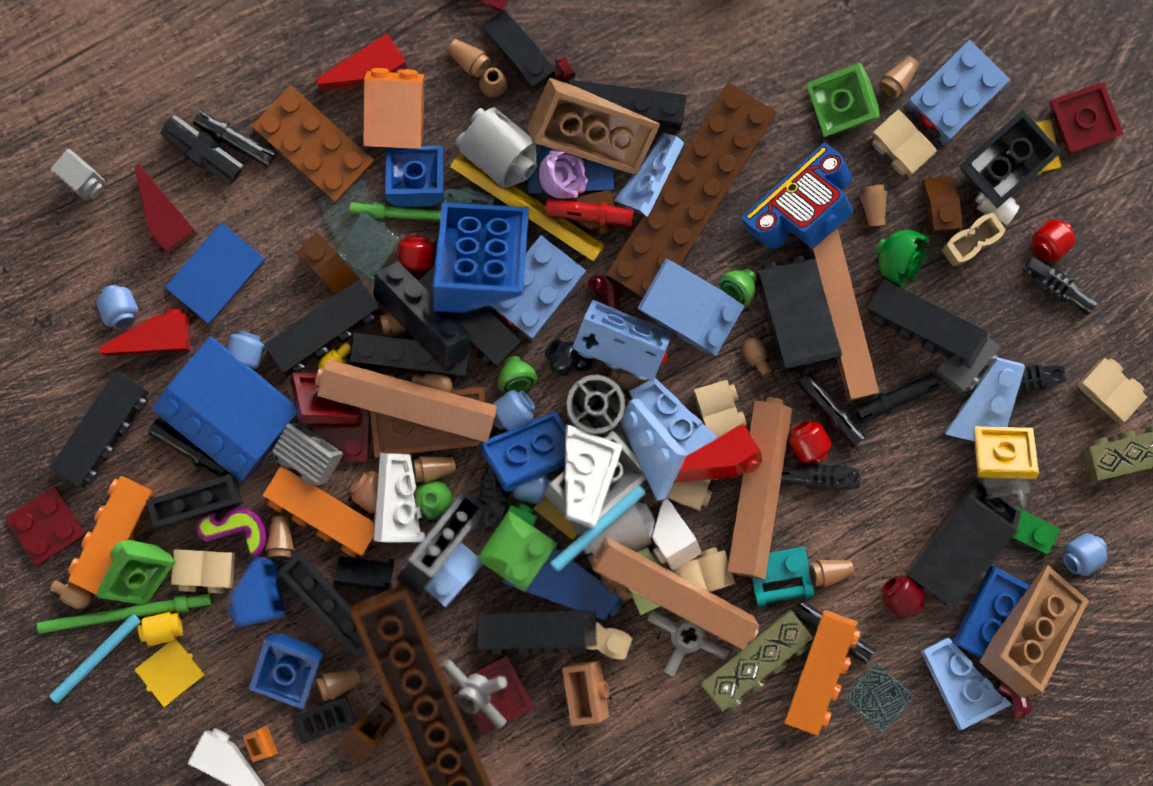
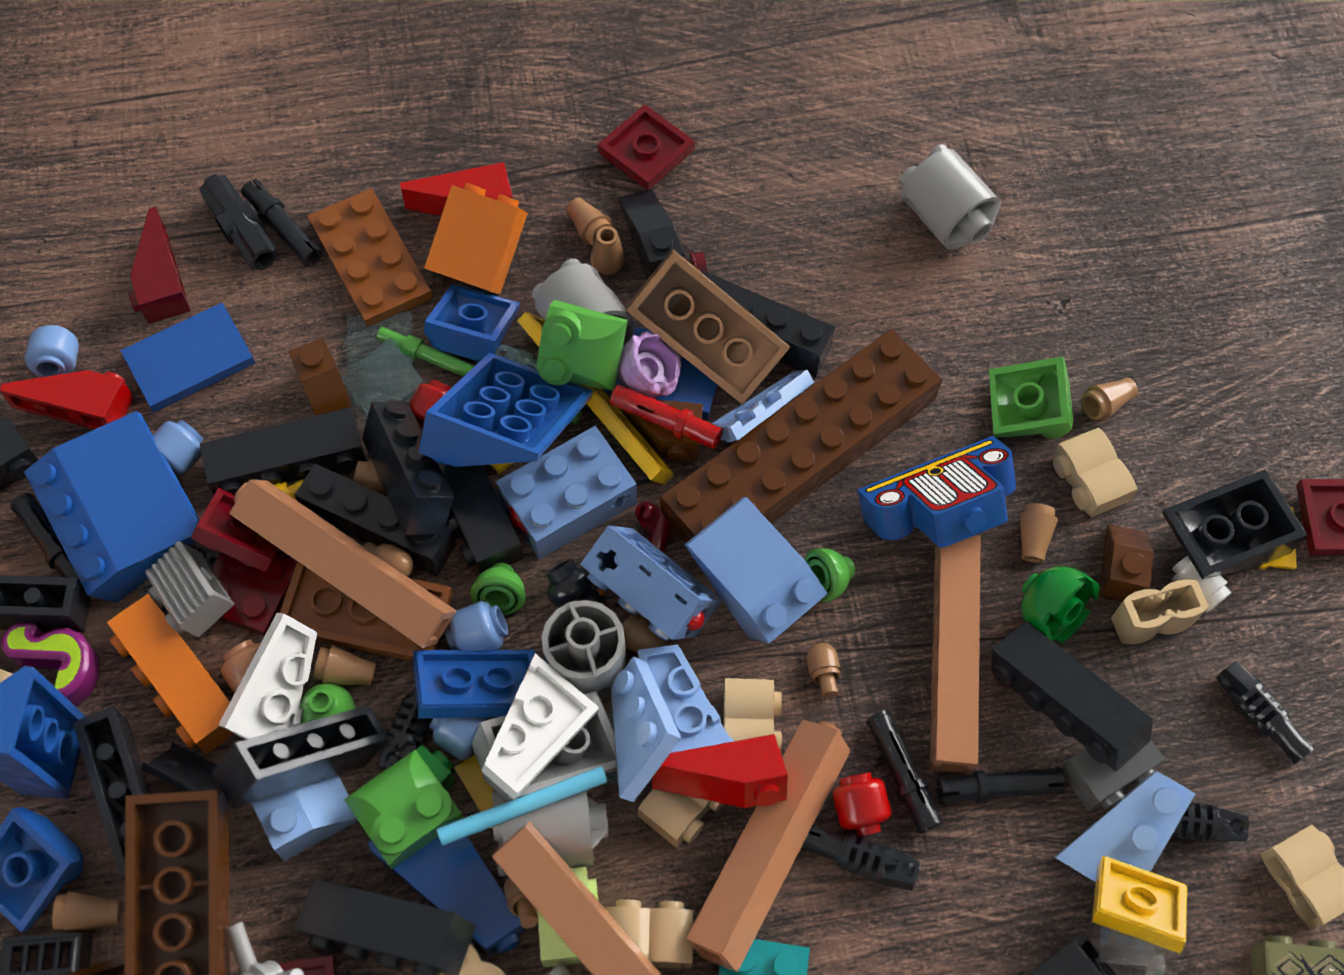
camera: 25 degrees right, 20 degrees down
(78, 175) = (80, 196): light grey brick -> none
(279, 540) = (105, 689): medium nougat cone -> none
(511, 183) = (580, 346): none -> bright green slope
(673, 538) = (625, 867): white slope -> none
(798, 315) = (896, 635): black slope -> none
(957, 92) = (1179, 434): medium blue piece -> none
(1053, 240) = (1268, 649): red head -> none

